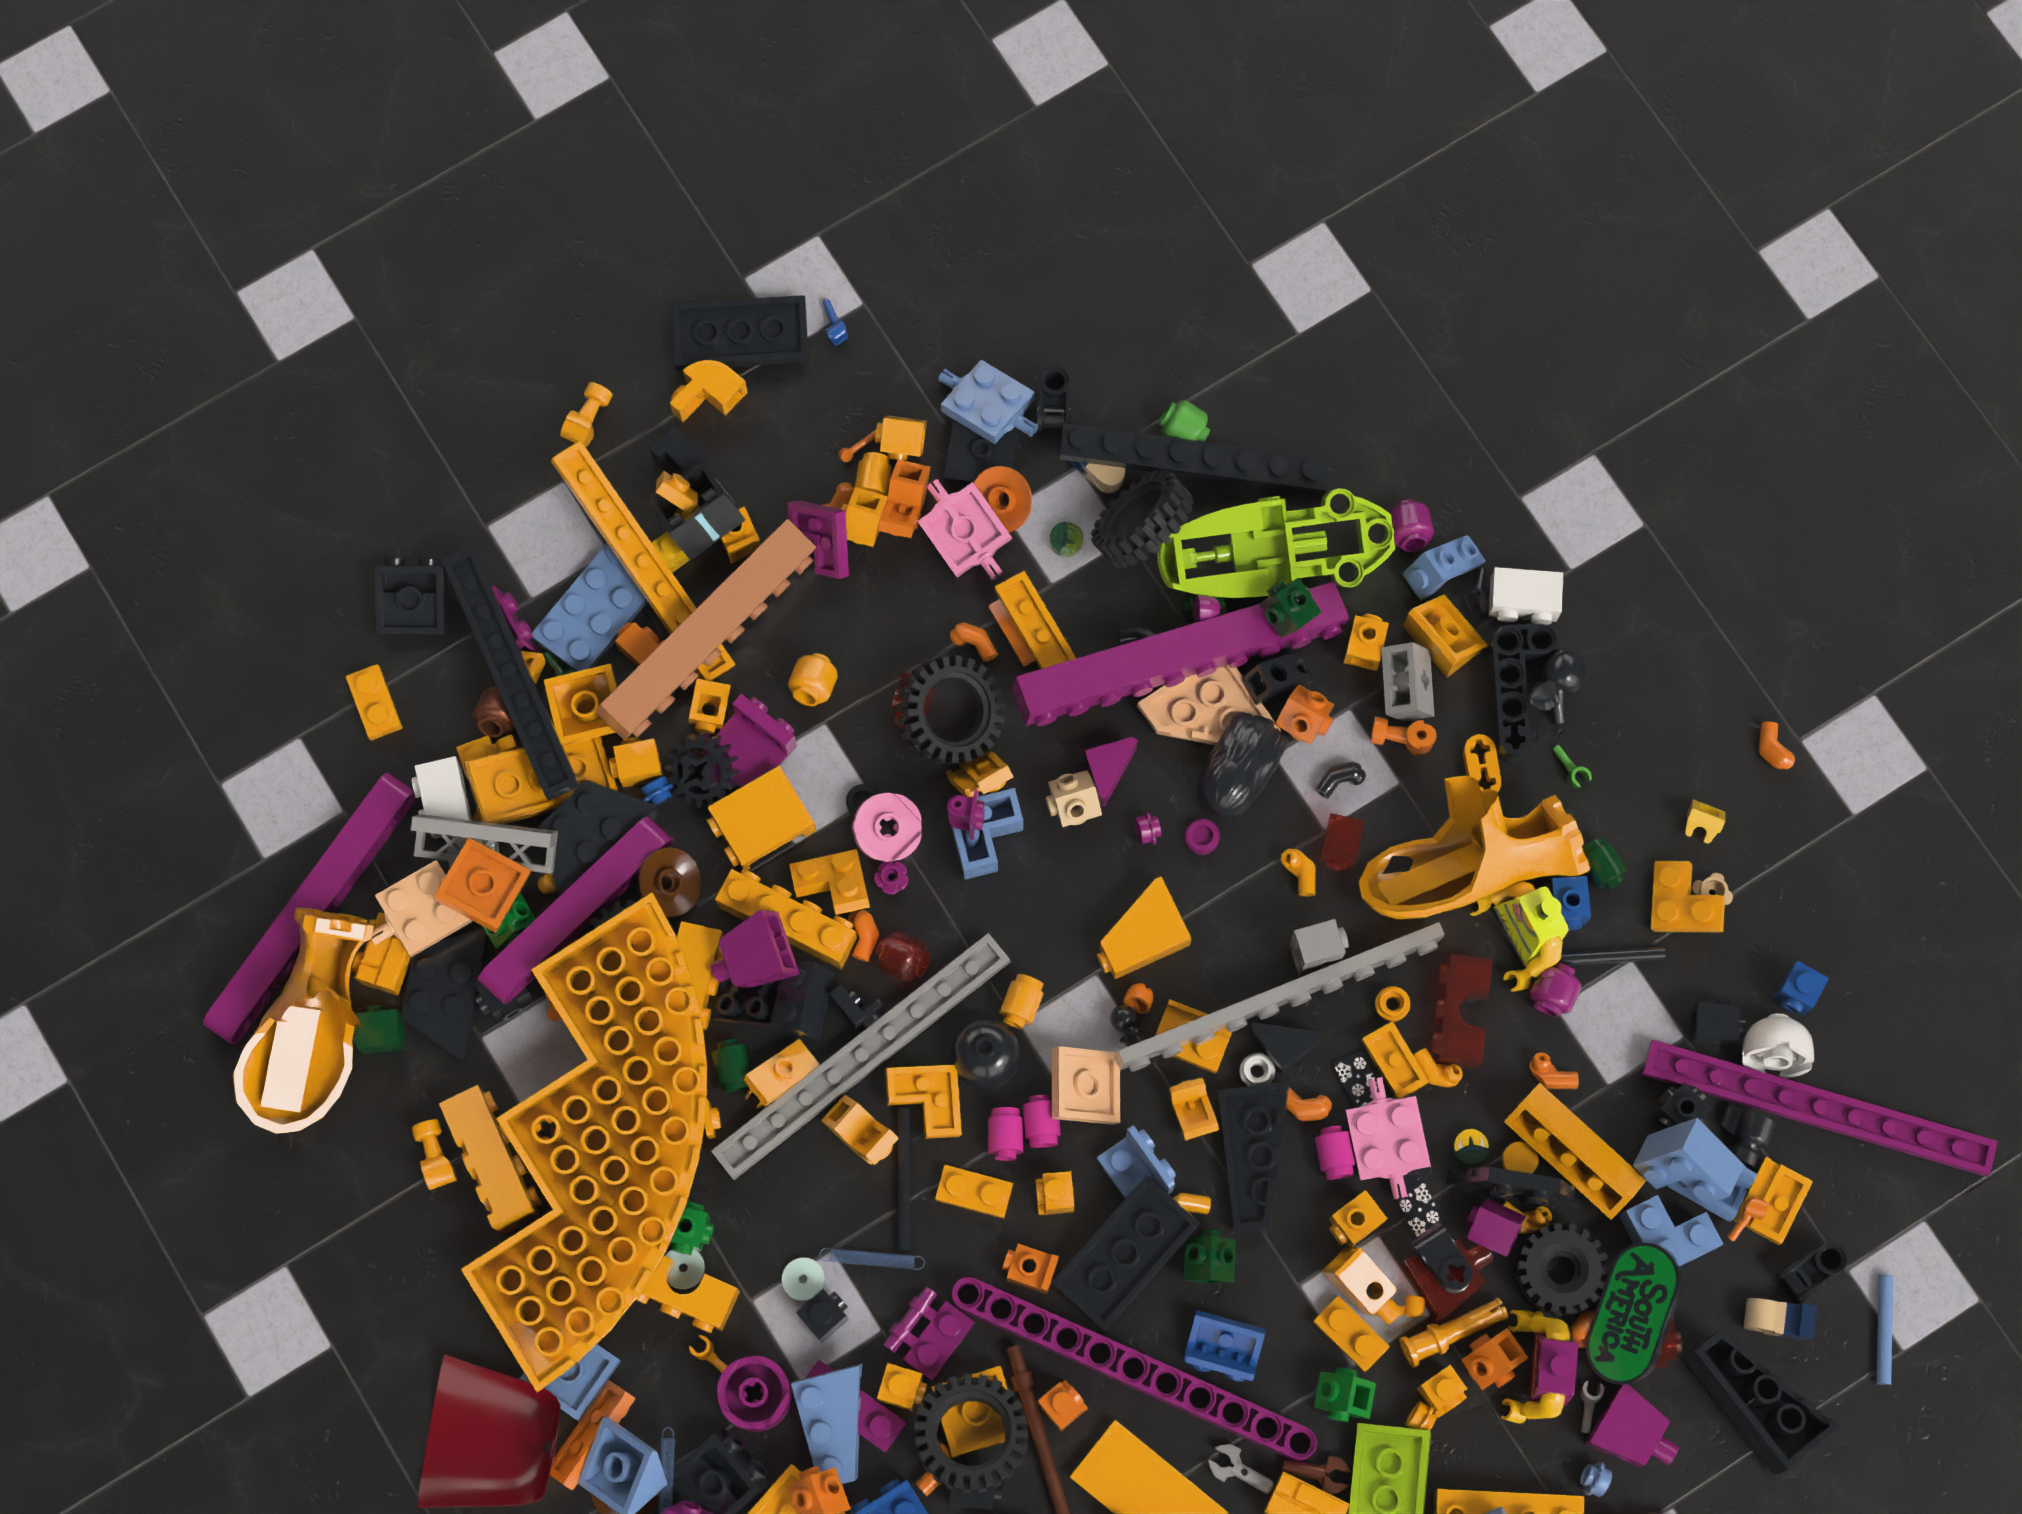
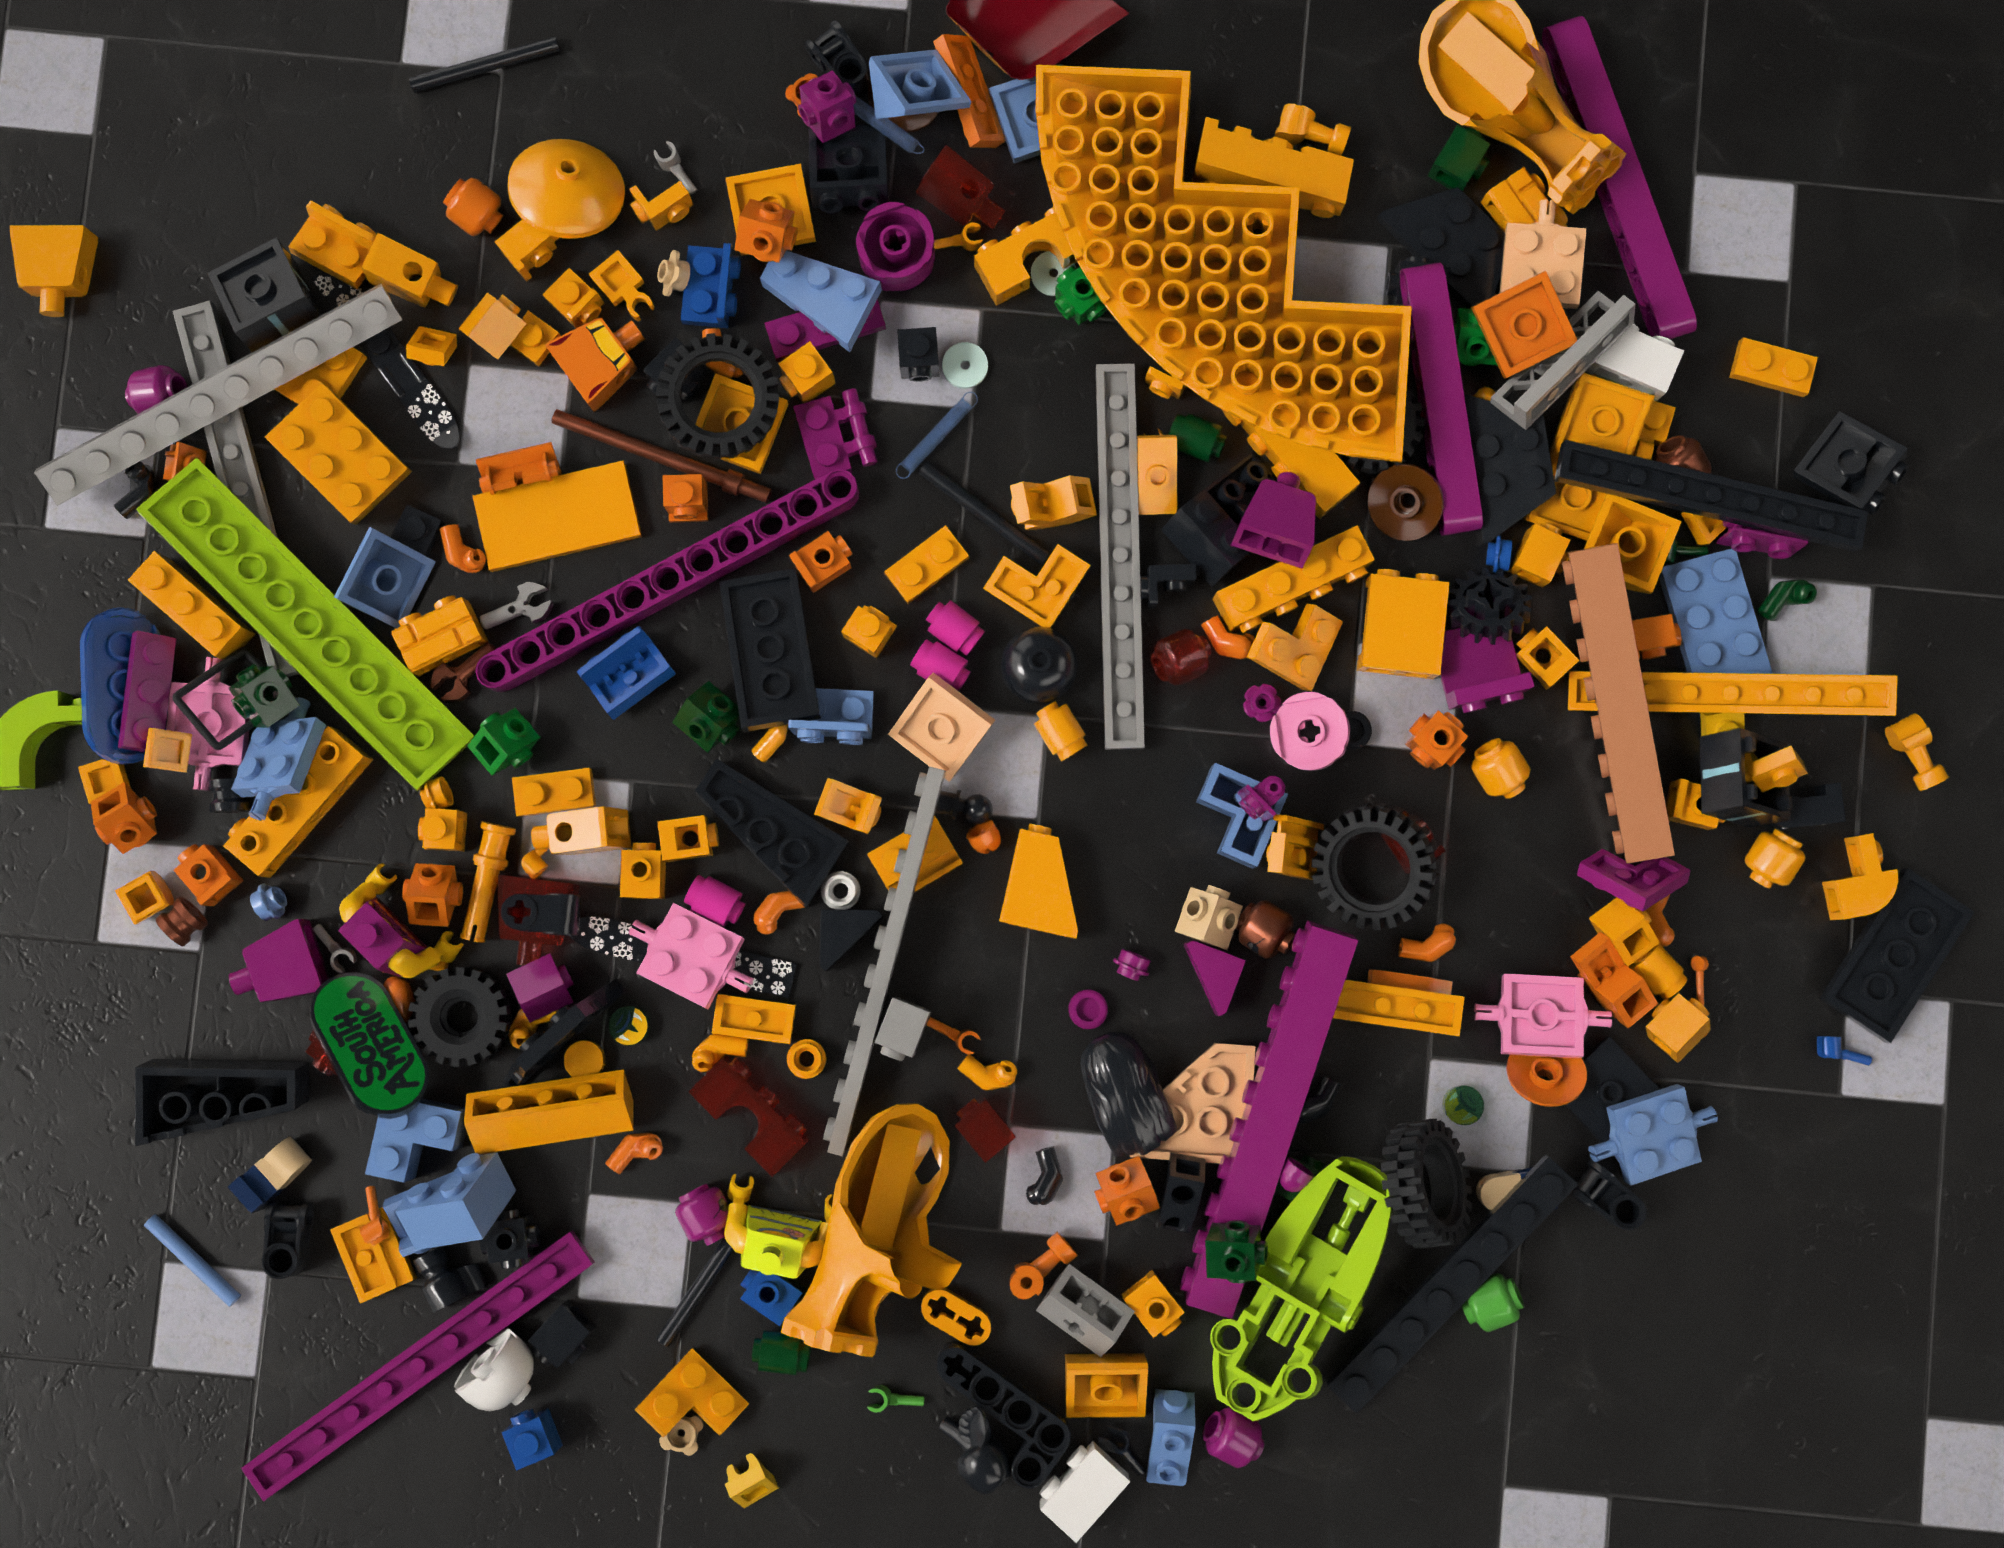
camera: 125 degrees right, 10 degrees up
(537, 578) = (1787, 593): none -> dark green arm
(675, 1391) = (951, 177): none -> clear red torso
(735, 455) = (1774, 858): none -> light orange head
(829, 747) = (1424, 746): none -> orange brick
(1050, 754) = (1266, 929): none -> copper head
(1292, 910) = (952, 1033): none -> orange hand
(1321, 1207) = (673, 834): none -> light orange brick

